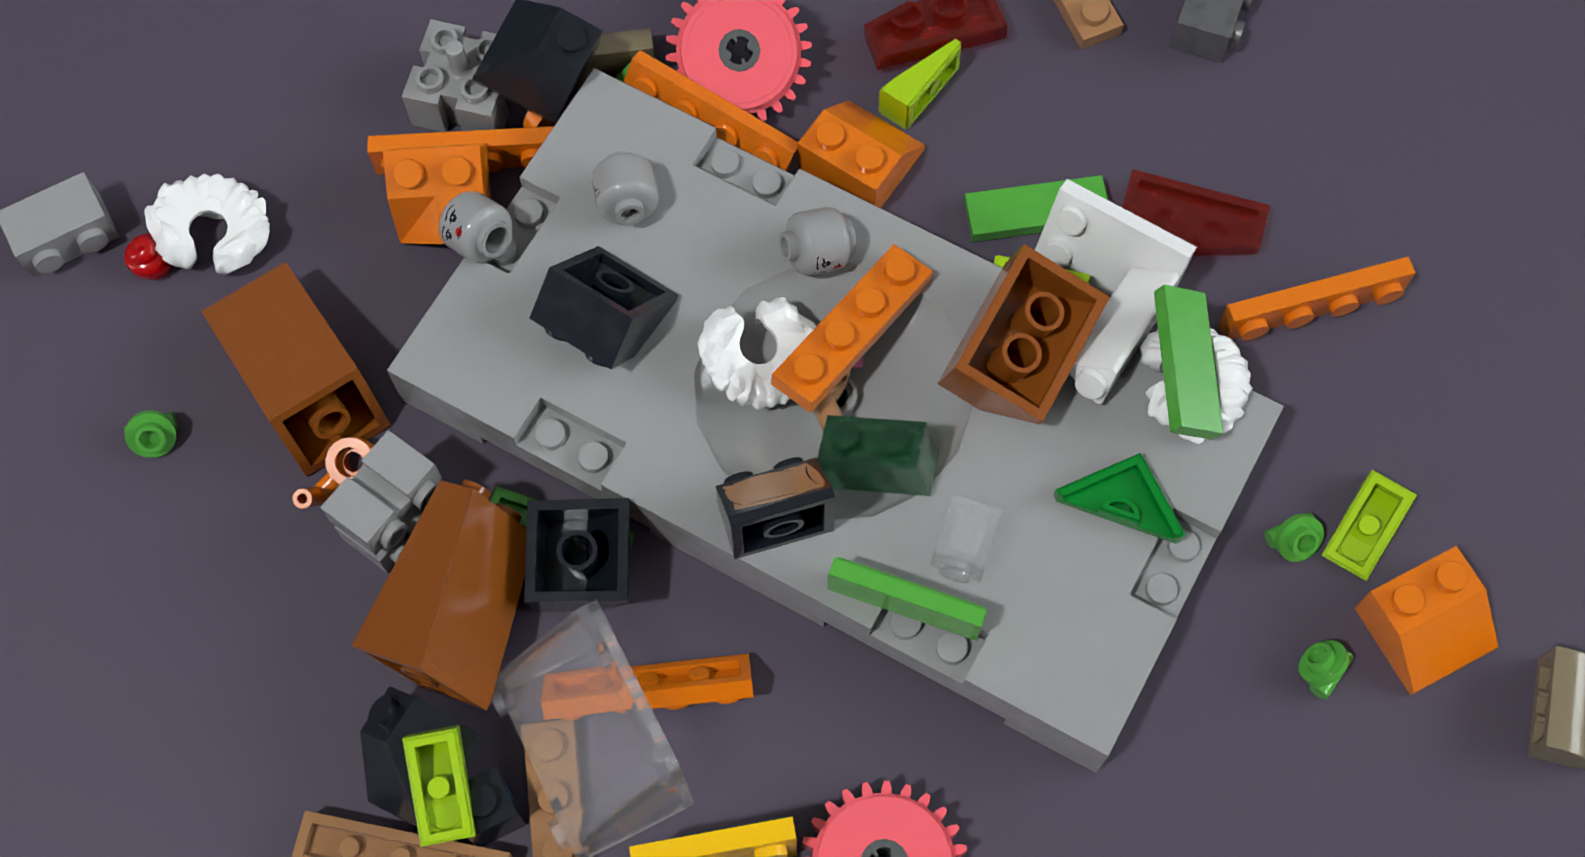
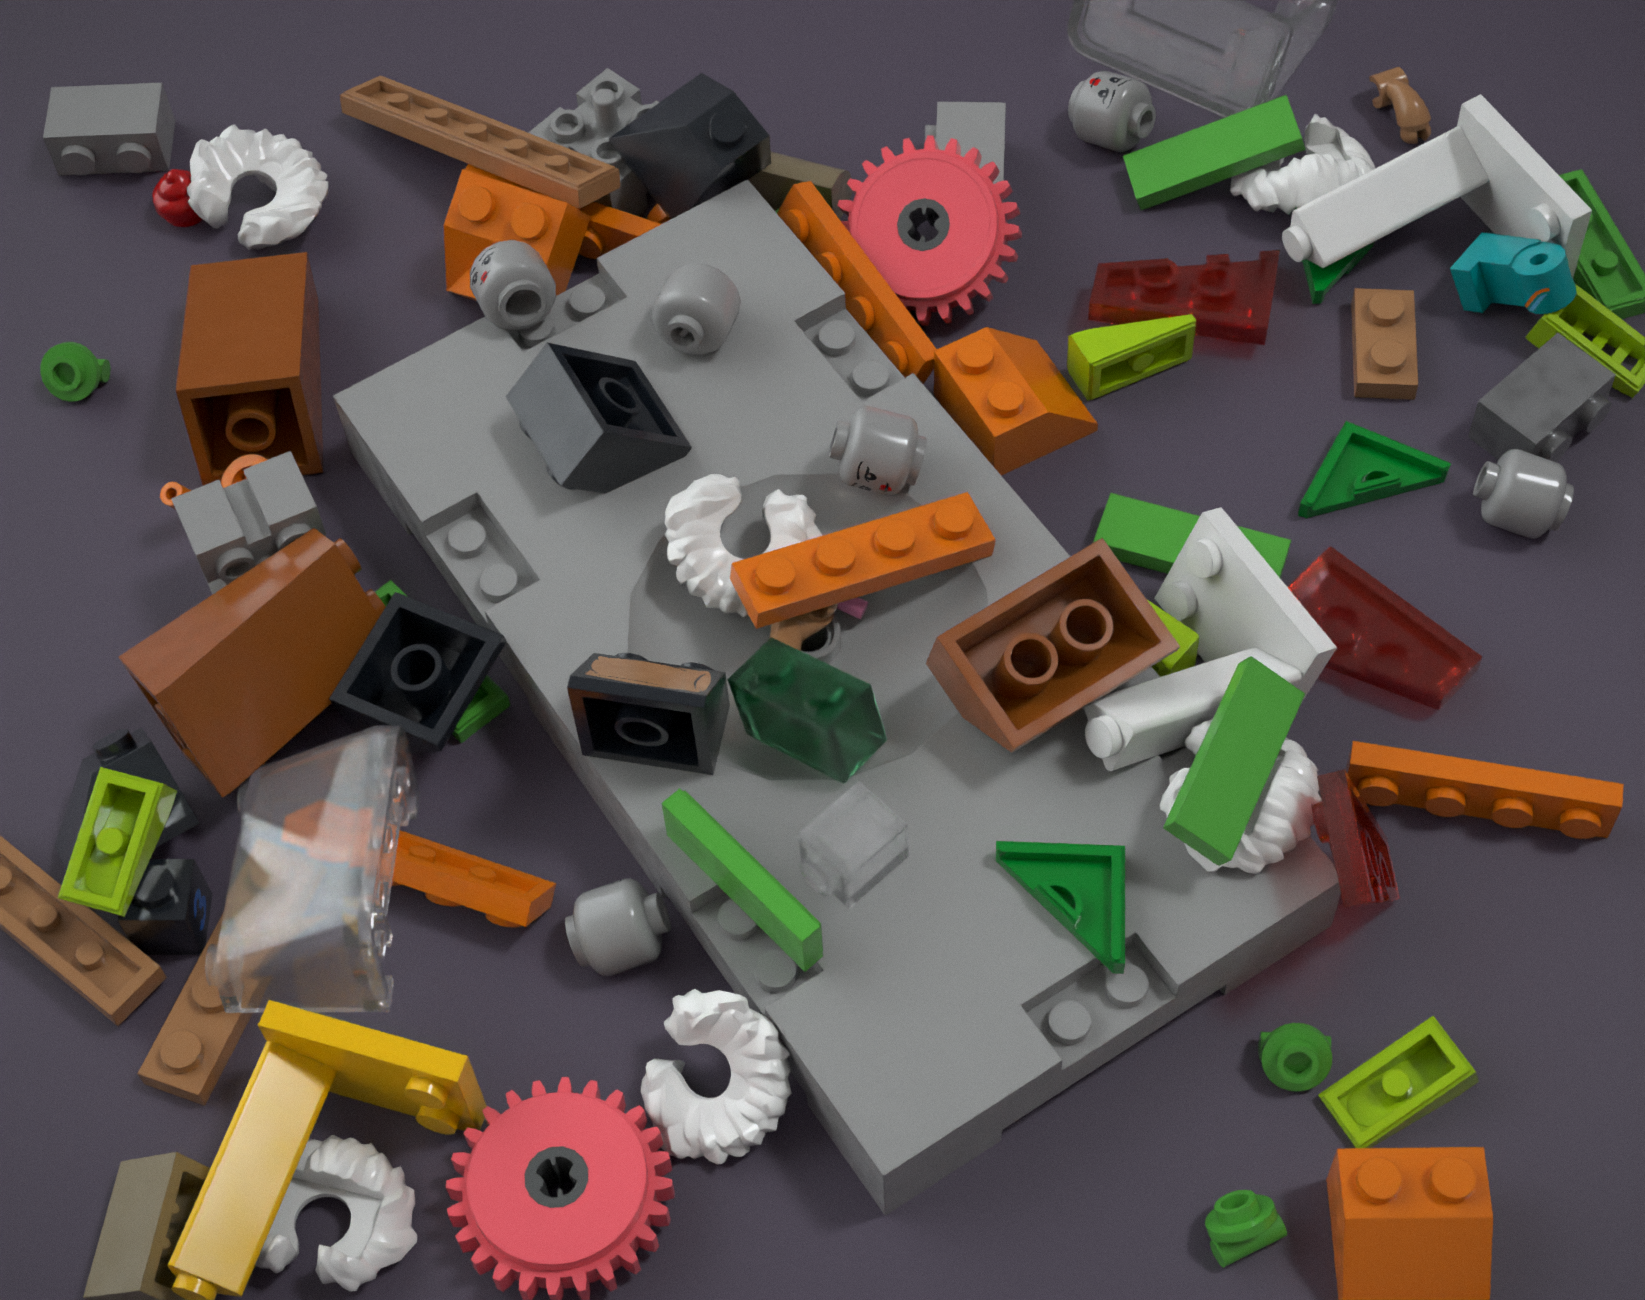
camera: 30 degrees right, 10 degrees down
(365, 117) = (481, 141): none -> medium nougat tile
(814, 665) = (617, 927): none -> light grey head
(974, 753) = (757, 1085): none -> white piece
(1119, 100) = (1366, 469): none -> green tile
(1234, 75) = (1524, 493): none -> light grey head
(1279, 381) = (1355, 842): none -> clear red wing

